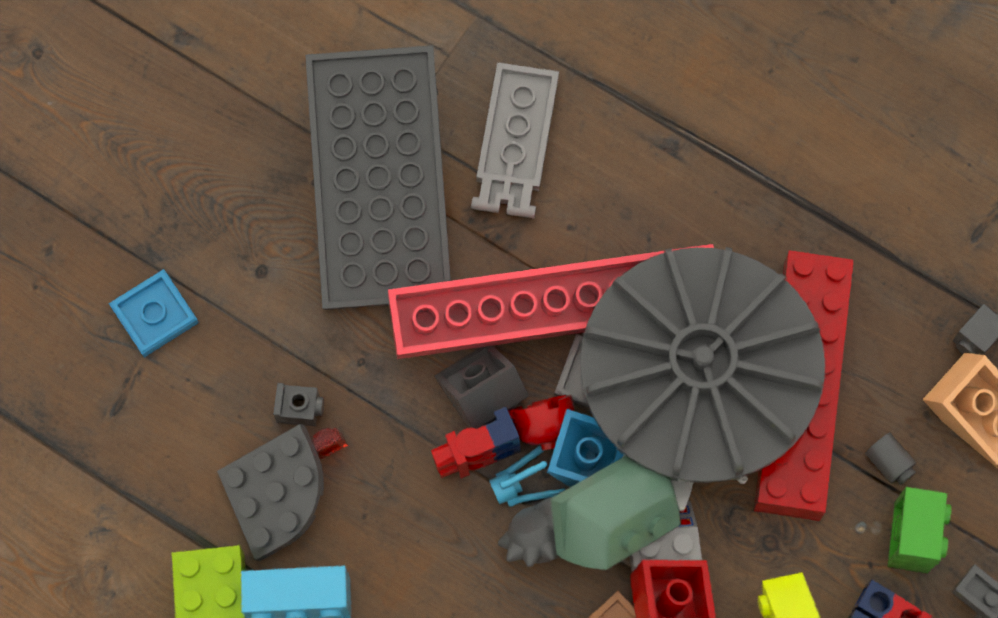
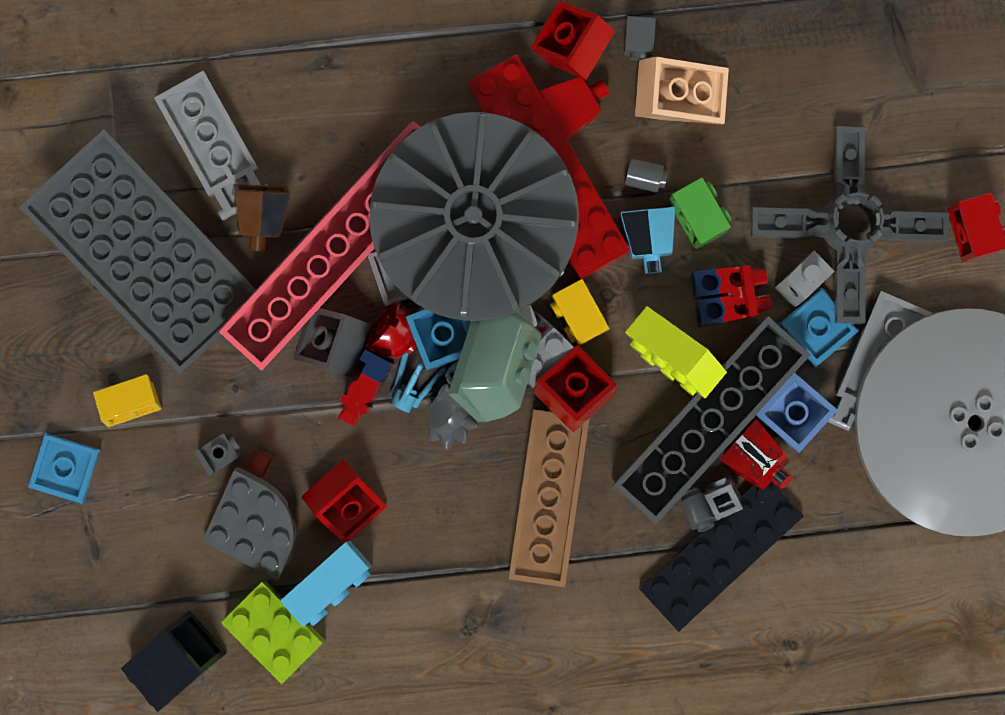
camera: 40 degrees left, 15 degrees up
(100, 555) = (173, 660): none -> black slope
(257, 296) = (127, 401): none -> yellow hinge
(374, 536) = (343, 501): none -> red slope
(509, 223) = (260, 212): none -> reddish brown torso
(731, 536) = (579, 313): none -> yellow brick
(853, 516) = (649, 235): none -> torso
(873, 346) = (574, 104): none -> red torso
(916, 286) = (572, 39): none -> red brick

